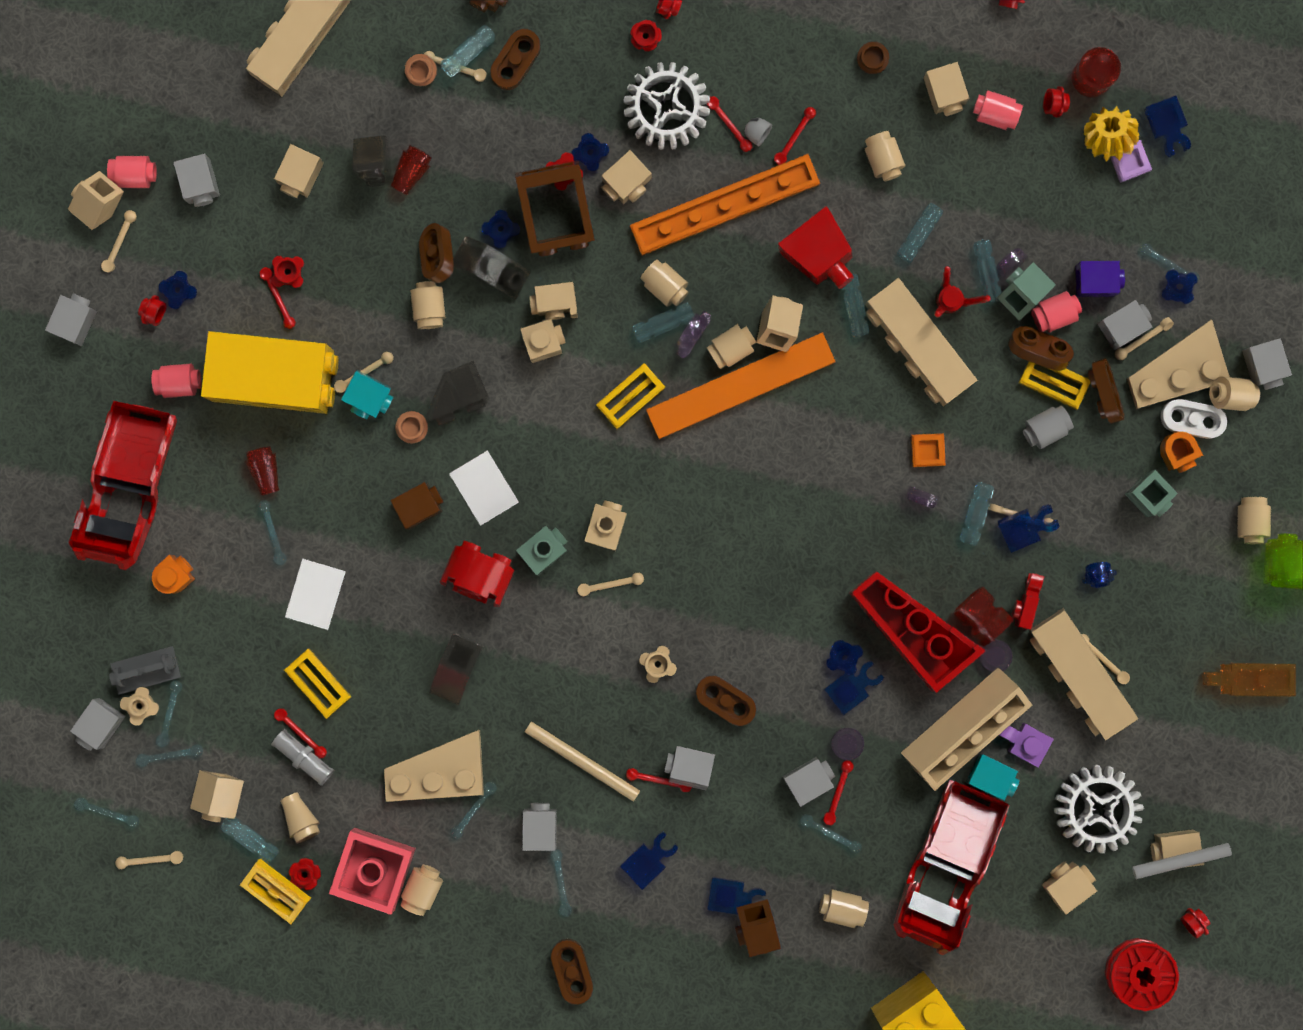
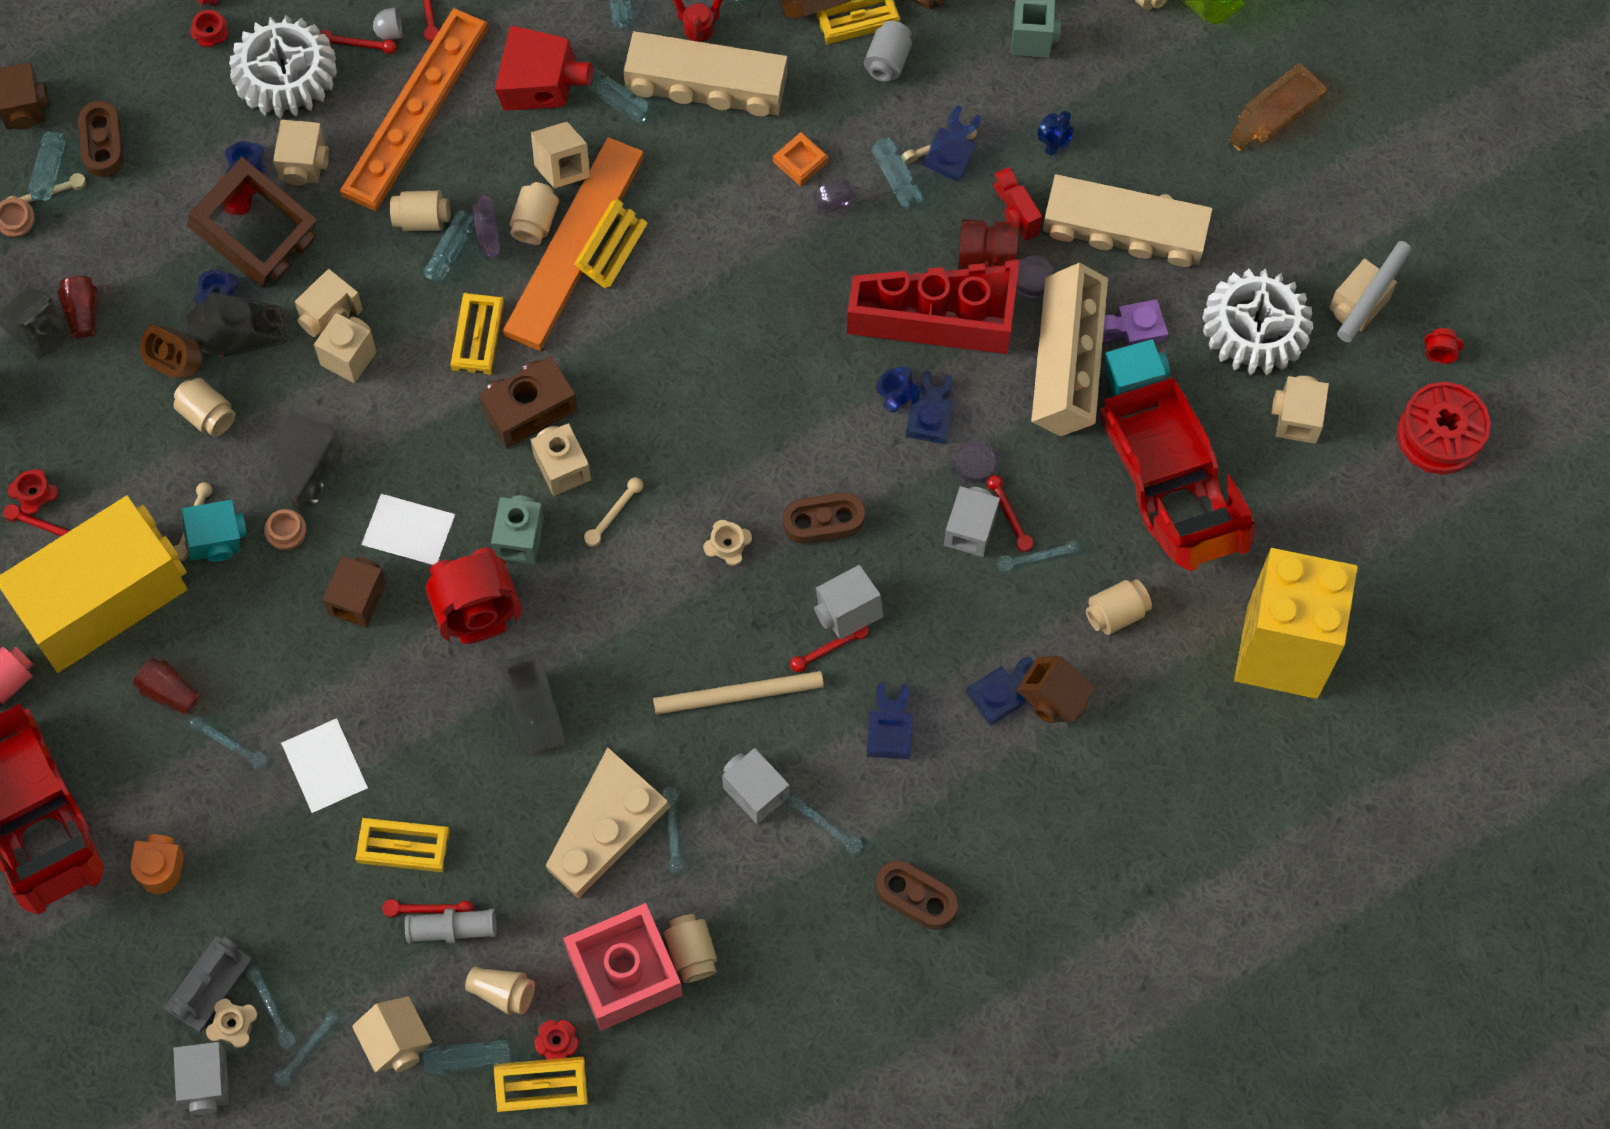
camera: 45 degrees left, 20 degrees down
(600, 477) = (517, 420): none -> reddish brown brick
(761, 413) = (626, 219): none -> yellow tile

